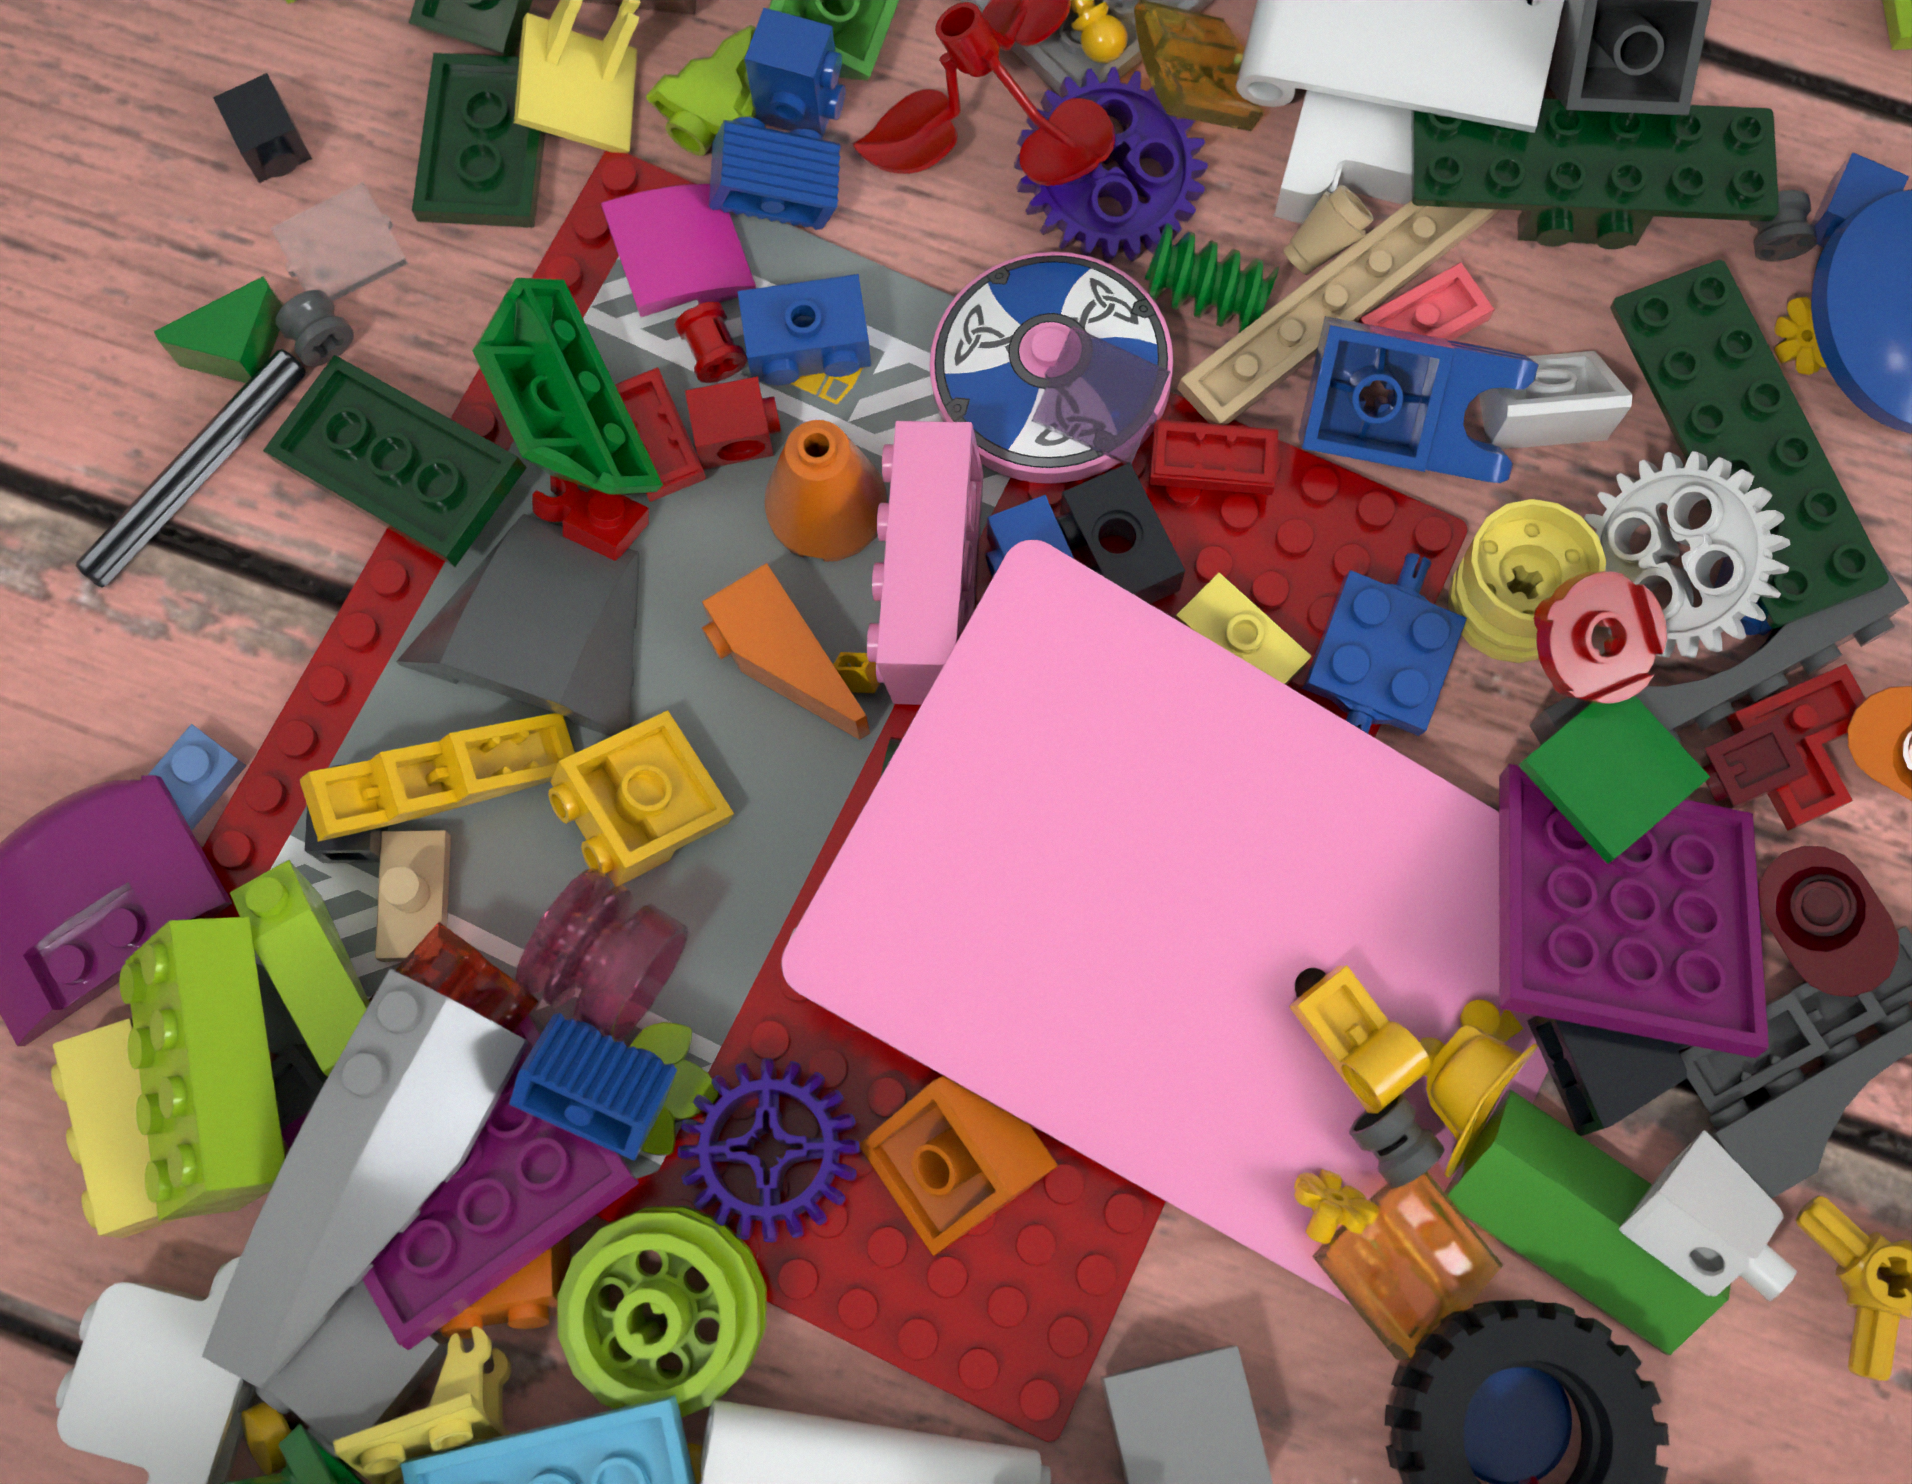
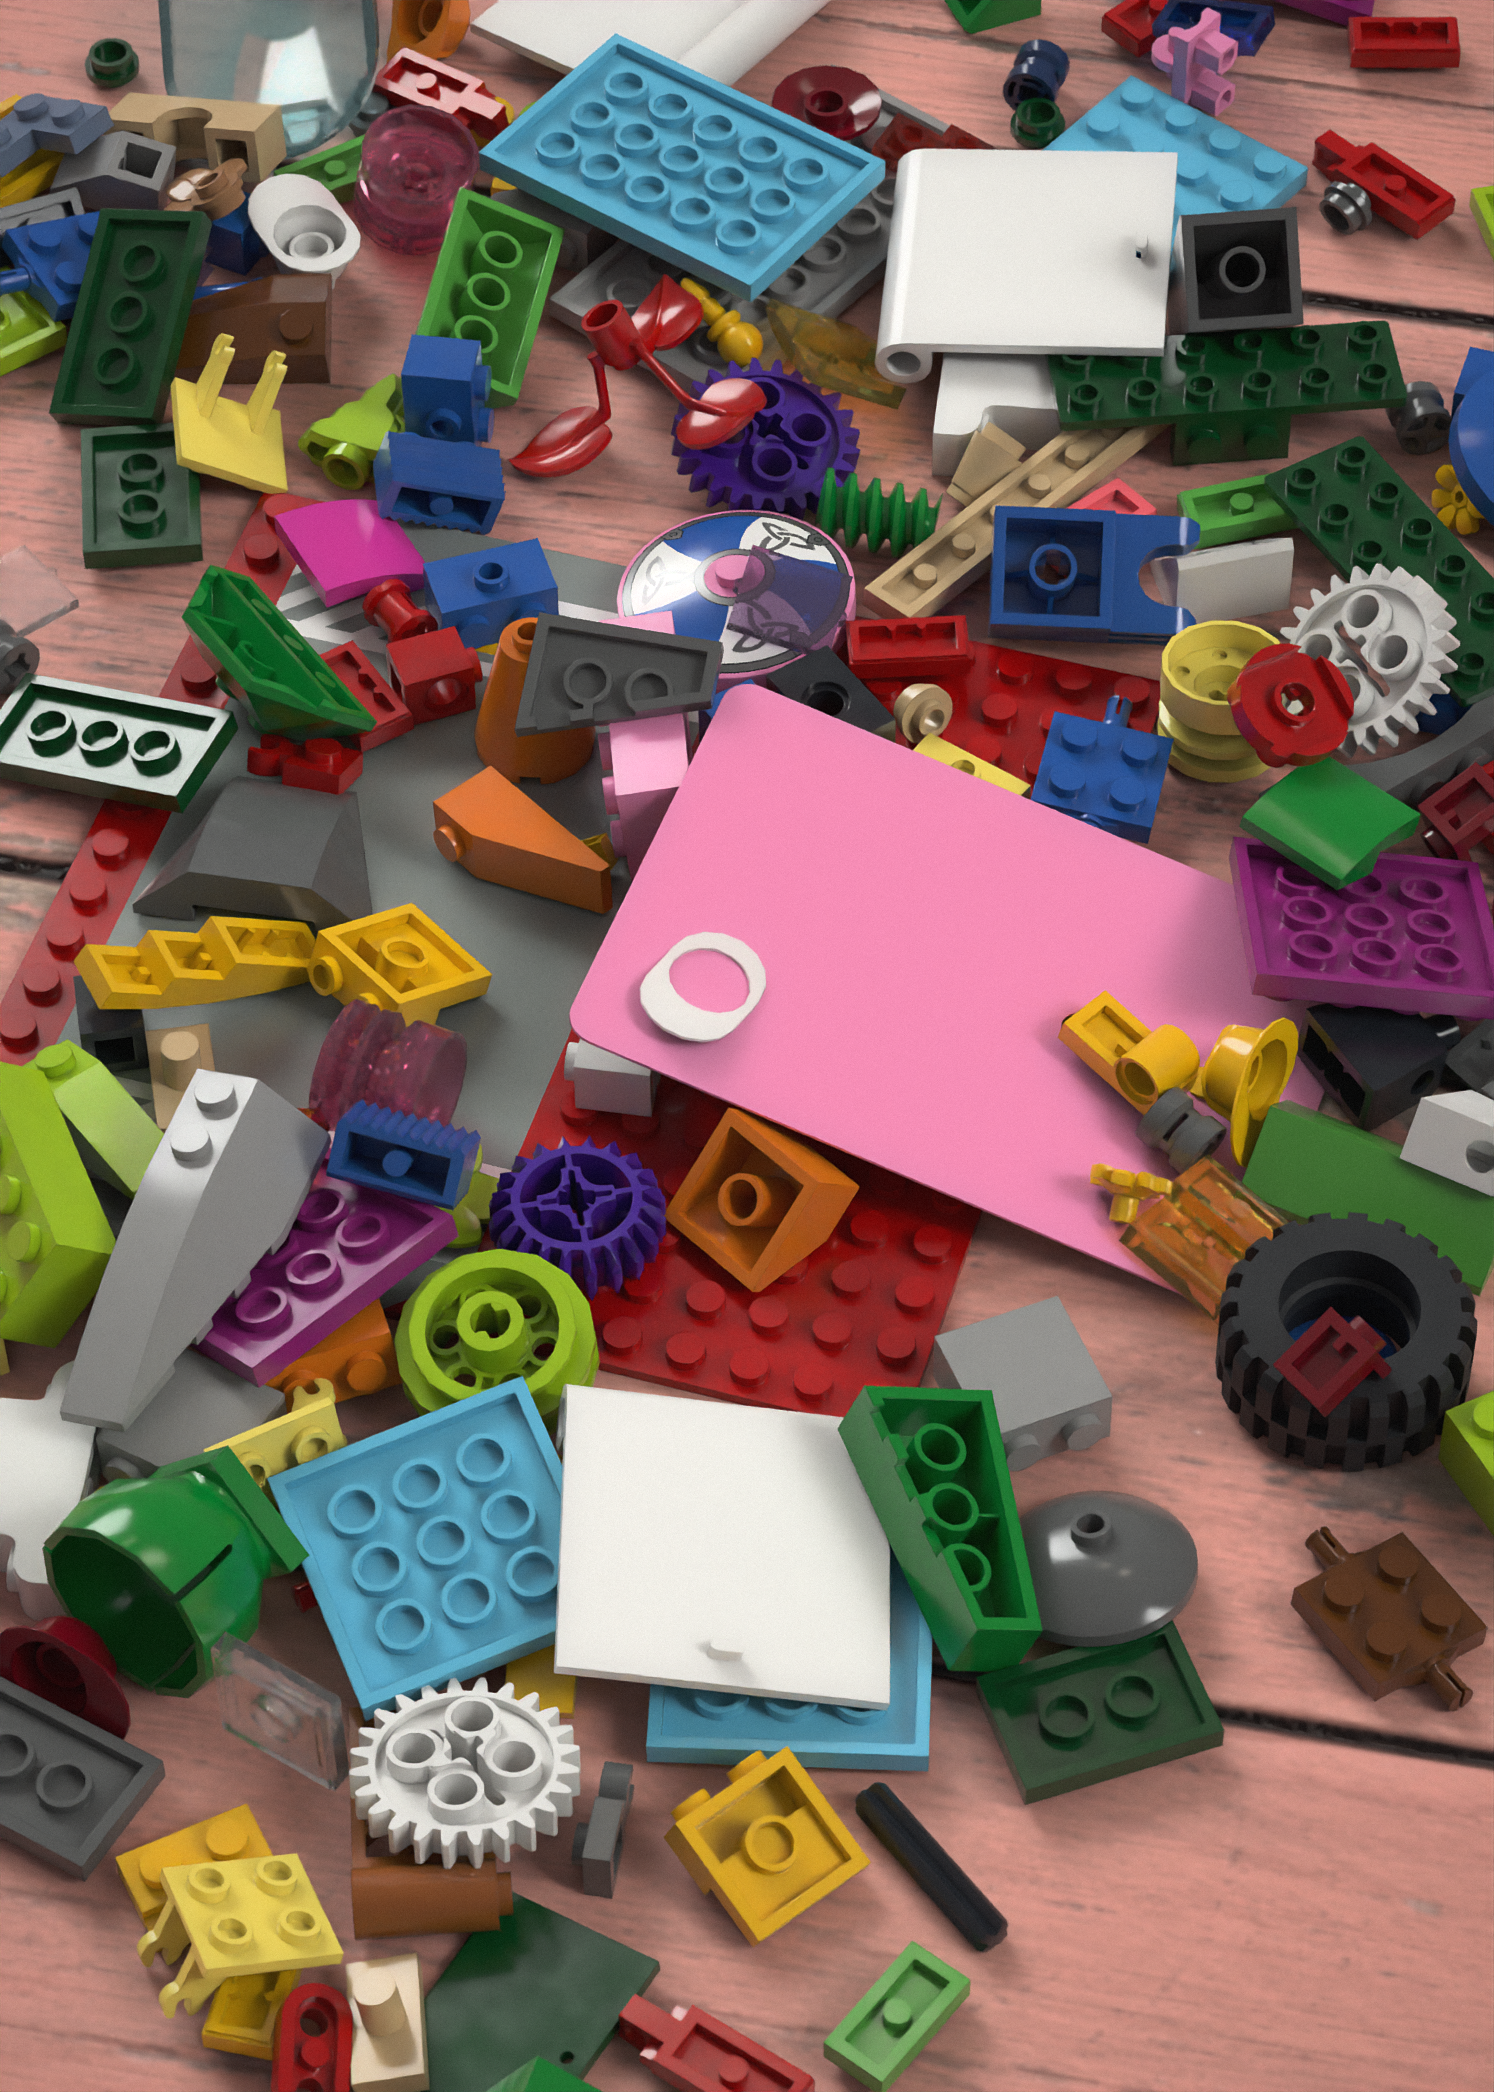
camera: 10 degrees left, 25 degrees down
(887, 964) = (685, 1020): none -> white piece
(891, 514) = (612, 674): none -> dark grey wing
(1216, 546) = (922, 711): none -> tan plate
(1570, 317) = (1233, 511): none -> bright green hinge

